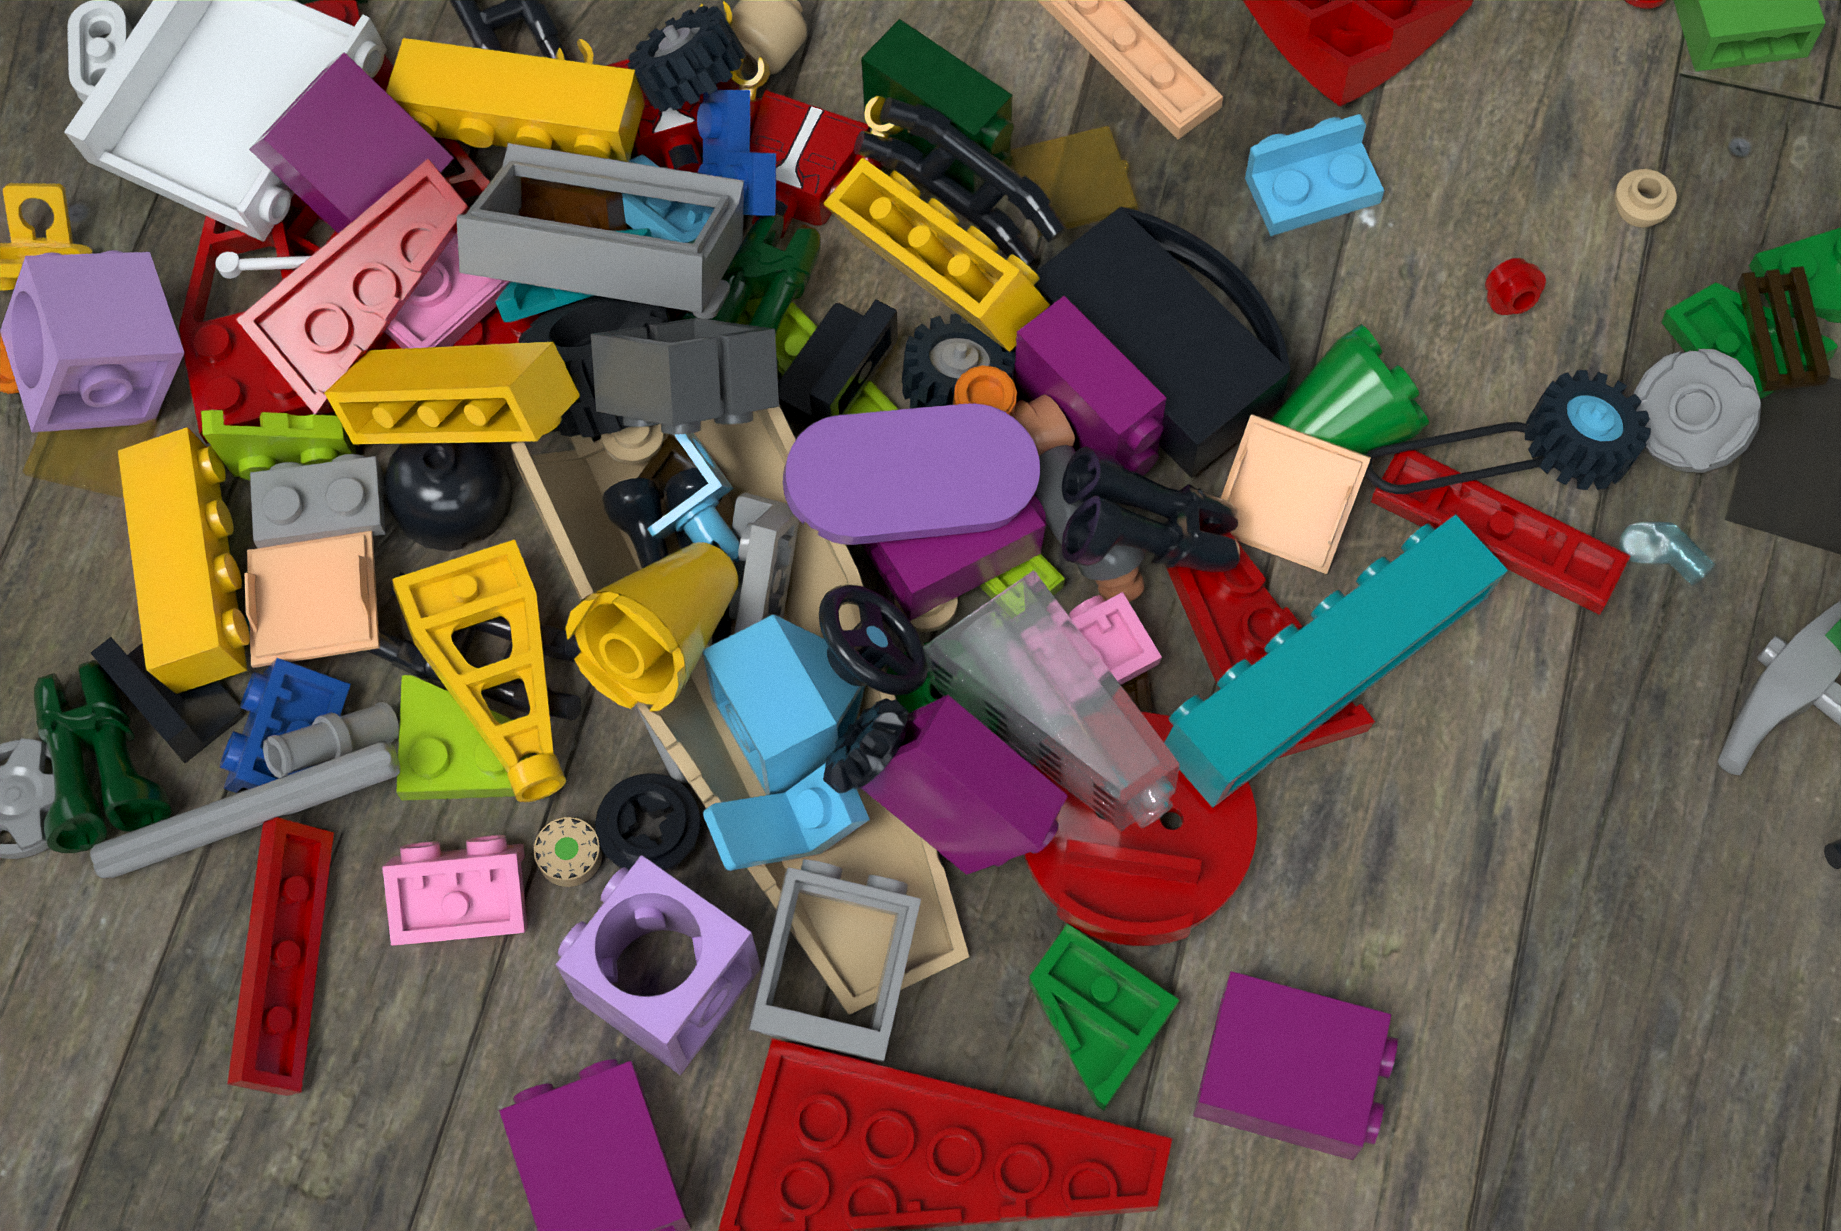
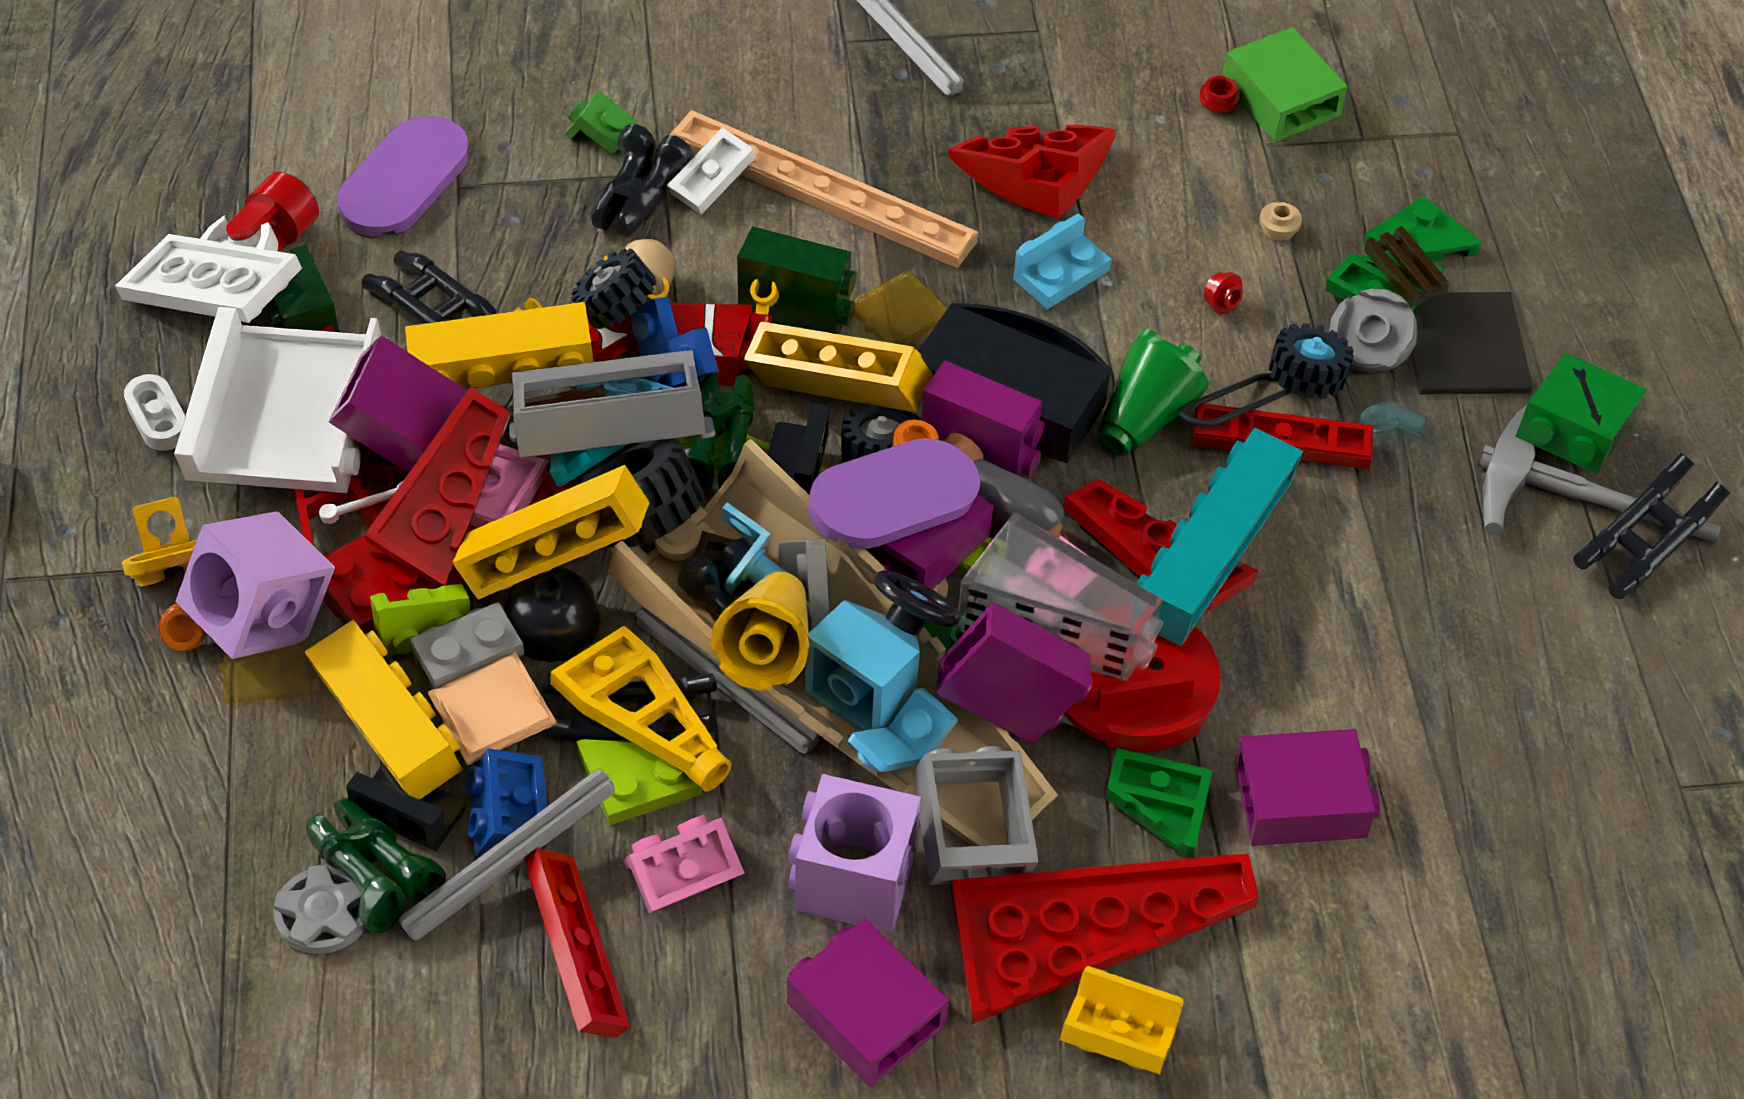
camera: 25 degrees left, 15 degrees down
(330, 738) = (546, 789): light grey pin -> none
(568, 852) = (748, 817): tan tile -> none
(658, 797) = (792, 764): black gear -> none
(685, 373) = (720, 465): dark grey piece -> none
(866, 746) = (946, 660): black gear -> none
(931, 175) = (822, 294): black piece -> none
(1185, 540) = (1043, 475): black piece -> none
(1293, 492) = (1140, 449): light nougat piece -> none

